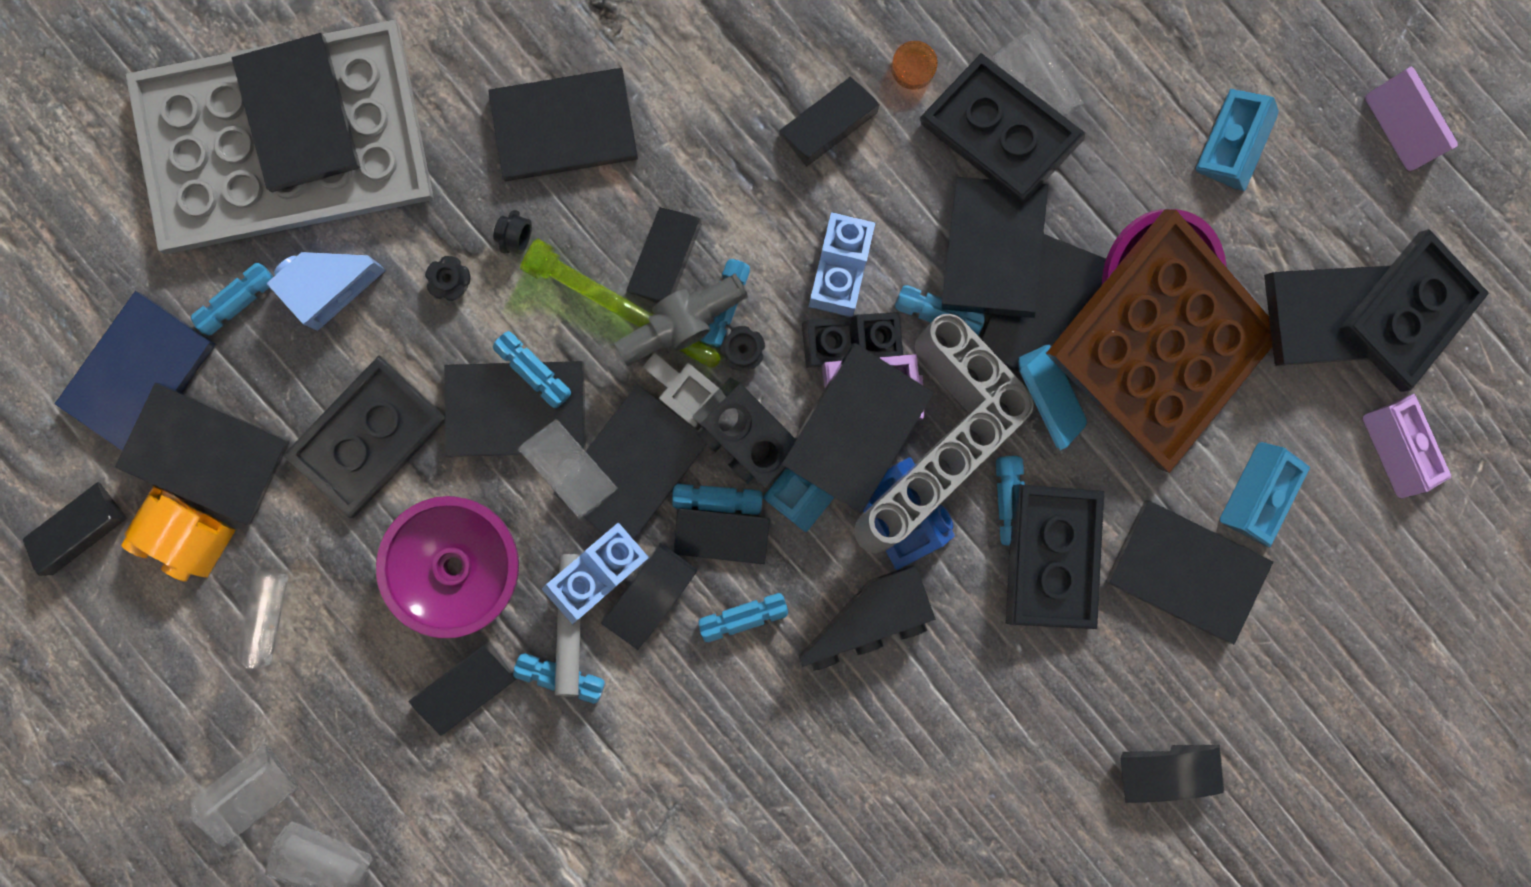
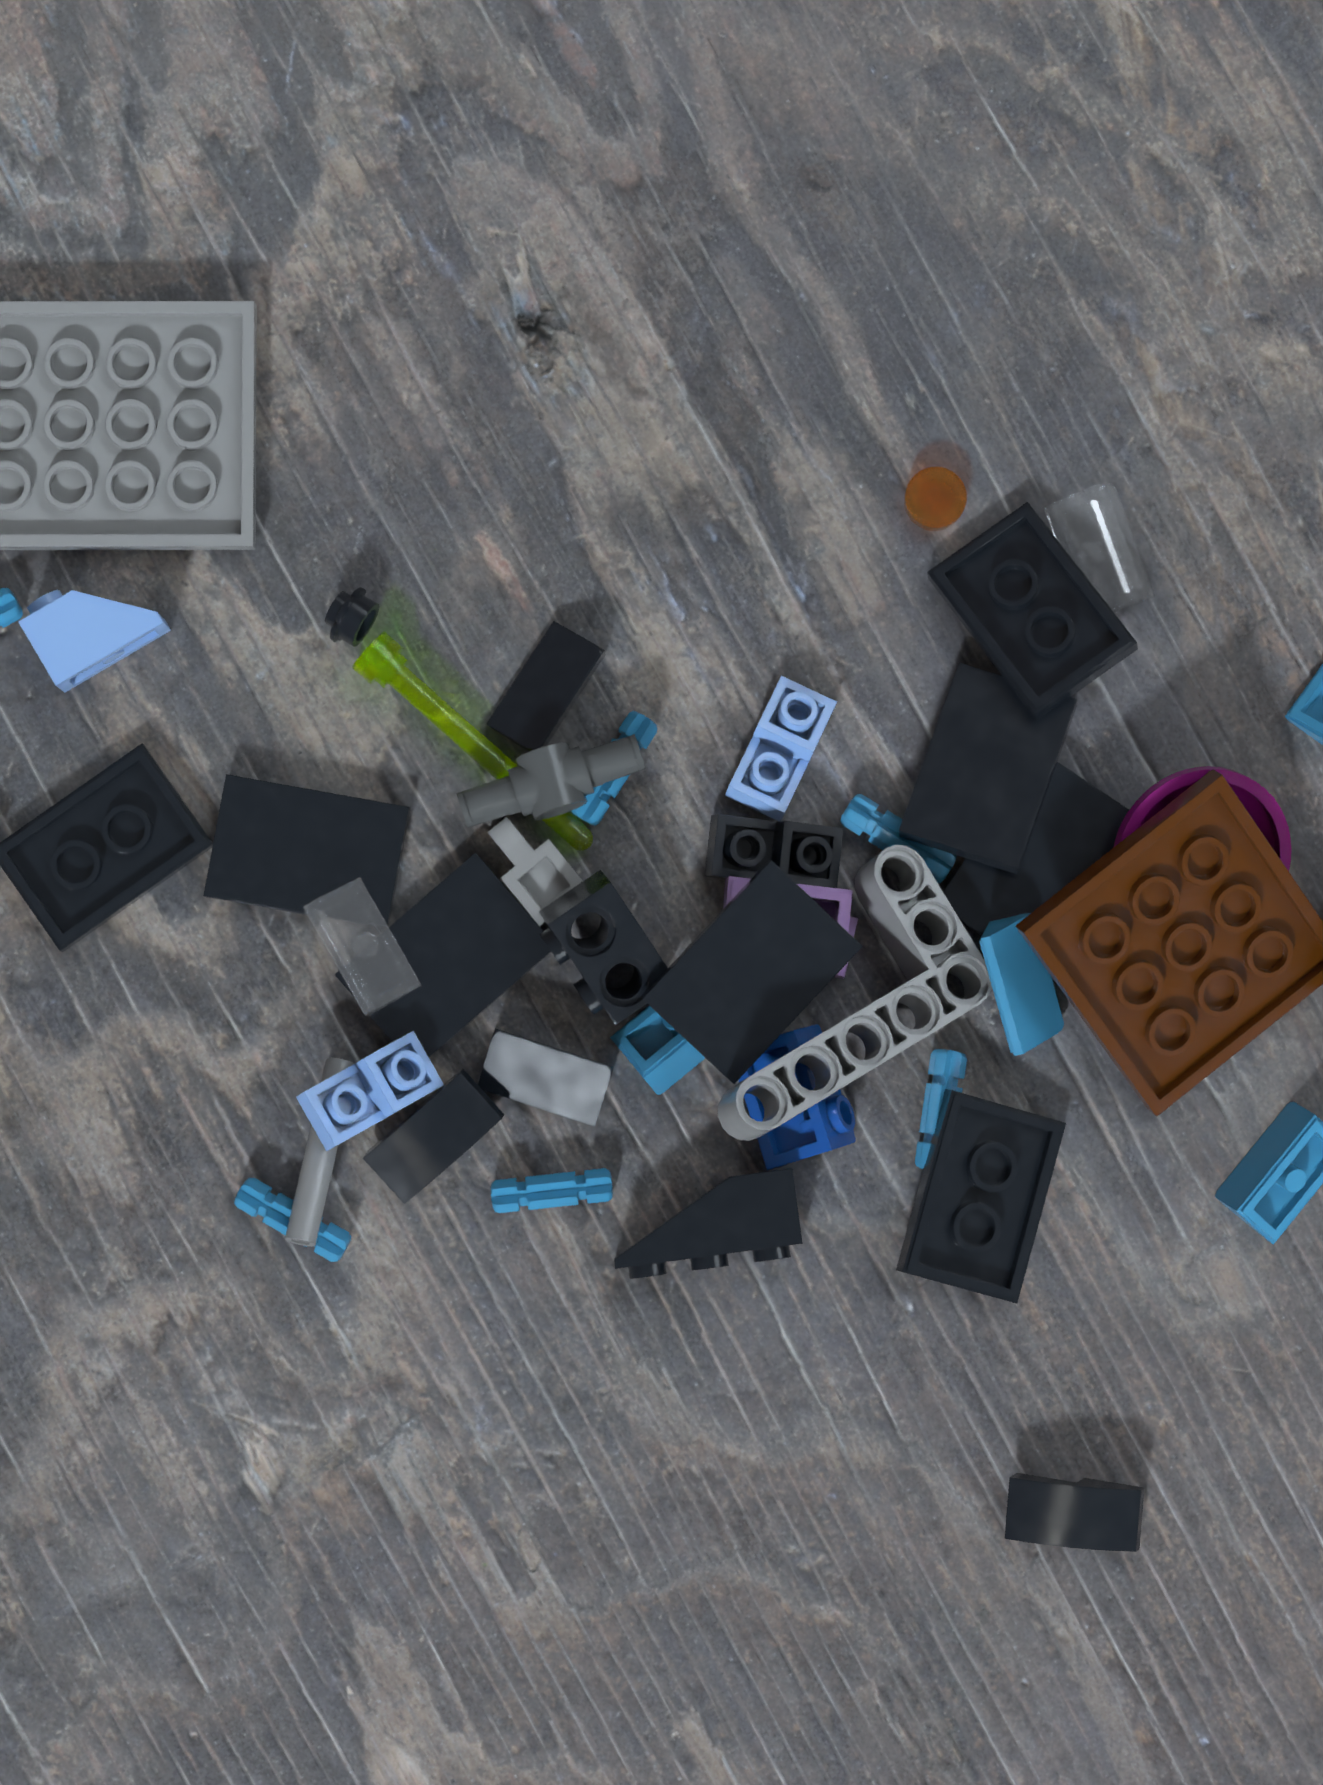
camera: 20 degrees right, 0 degrees up
(295, 112) = (100, 401): black tile -> none
(416, 575) = (135, 1031): magenta dish -> none
(459, 278) = (253, 676): black plate -> none
(463, 689) = (164, 1208): black slope -> none
(531, 369) = (340, 805): dark azure axle -> none
(563, 124) = (448, 483): black tile -> none
(717, 499) = (550, 1027): dark azure axle -> none
(743, 336) = (625, 816): black plate -> none
(829, 120) = (805, 551): black slope -> none
(1189, 572) = (1157, 1254): black tile -> none

